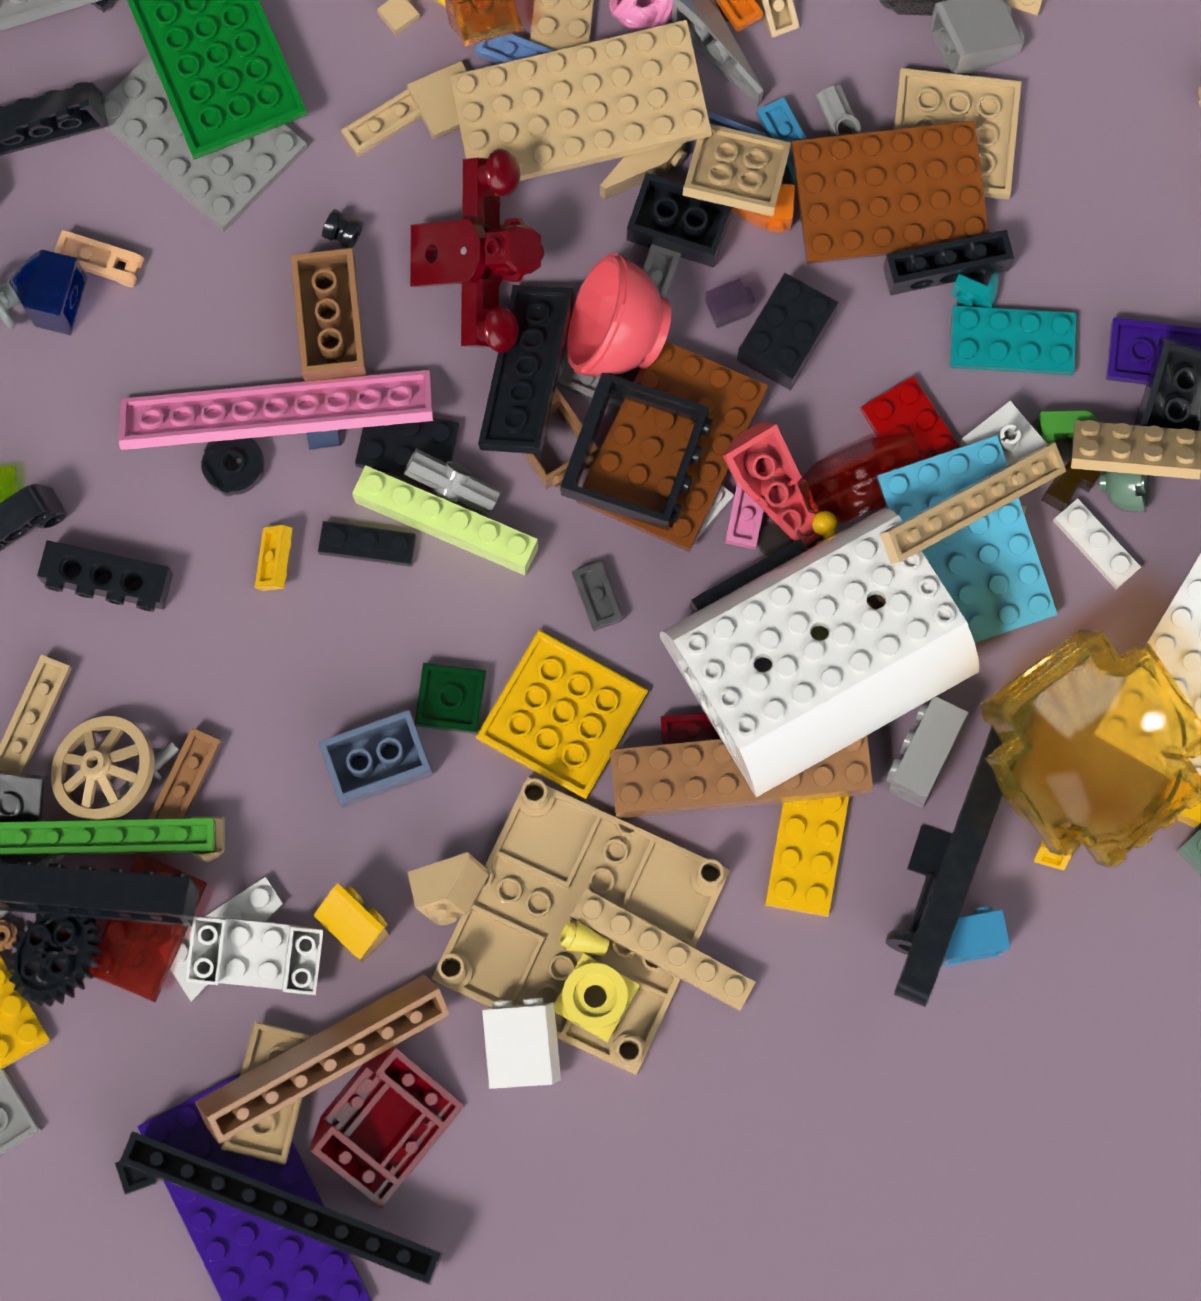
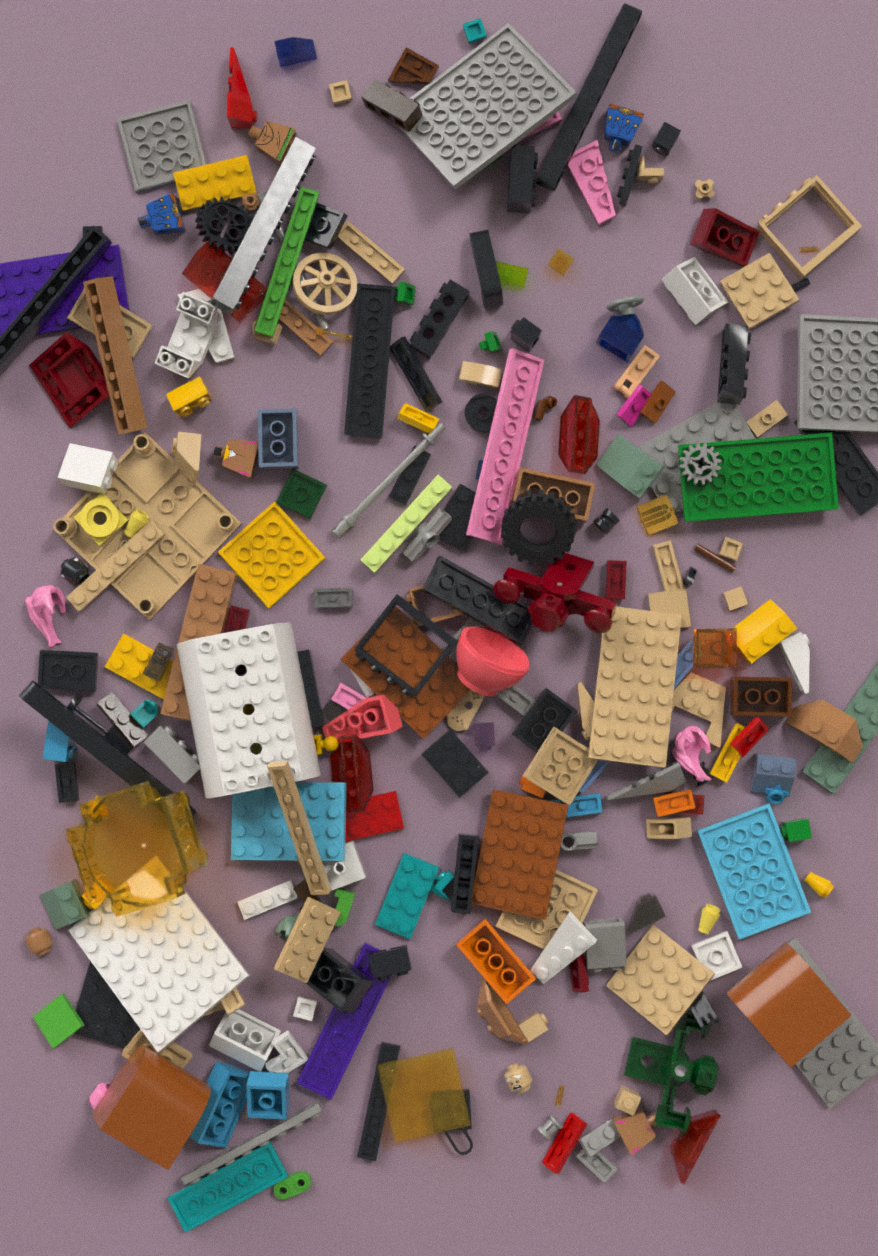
camera: 115 degrees right, 10 degrees up
(68, 1066) = (163, 216): none -> torso
(79, 640) = (406, 293): none -> green tile
(90, 433) = (525, 334): none -> black piece
(110, 51) = (766, 418): none -> tan plate
(118, 485) = (492, 342): none -> green tile
(134, 212) = (657, 402): none -> dark orange plate
(150, 243) = (631, 409): none -> dark pink plate
(174, 486) = (480, 374): none -> tan slope
(180, 752) = (319, 330): none -> clear yellow hinge
(192, 378) = (543, 405): none -> reddish brown arm
(204, 584) = (415, 374): none -> black plate
(204, 662) = (369, 361): none -> black plate
(224, 309) = (579, 435): none -> clear red wedge
(225, 114) = (708, 466): none -> light grey gear
(247, 217) = (630, 466): none -> sand green slope
(308, 159) = (657, 515): none -> clear yellow piece
(325, 42) = (730, 549): none -> tan tile
(346, 60) = (715, 558): none -> reddish brown piece
(361, 333) = (543, 506): none -> black tyre
(389, 86) = (689, 579): none -> black tile
(423, 813) = (239, 456): none -> medium nougat torso
(427, 188) = (615, 579): none -> dark red plate
(465, 610) = (350, 519): none -> light grey bar
(693, 1013) = (74, 571): none -> black head
(707, 343) = (463, 713): none -> tan piece
(768, 1049) = (41, 609): none -> bright pink hair
(792, 825) = (159, 662): none -> clear smoke leg
(855, 971) = (68, 670): none -> black plate
(878, 825) = (145, 712): none -> teal plate
(902, 858) = (121, 720): none -> plate
(999, 77) = (564, 947): none -> white wing
(1033, 58) = (578, 974): none -> dark red plate
(1033, 911) = (67, 782): none -> black plate
(1060, 175) = (495, 960): none -> orange slope
(1120, 318) = (390, 962): none -> black piece
(1135, 96) = (533, 1025): none -> tan brick
(1137, 152) = (498, 1015): none -> medium nougat wedge

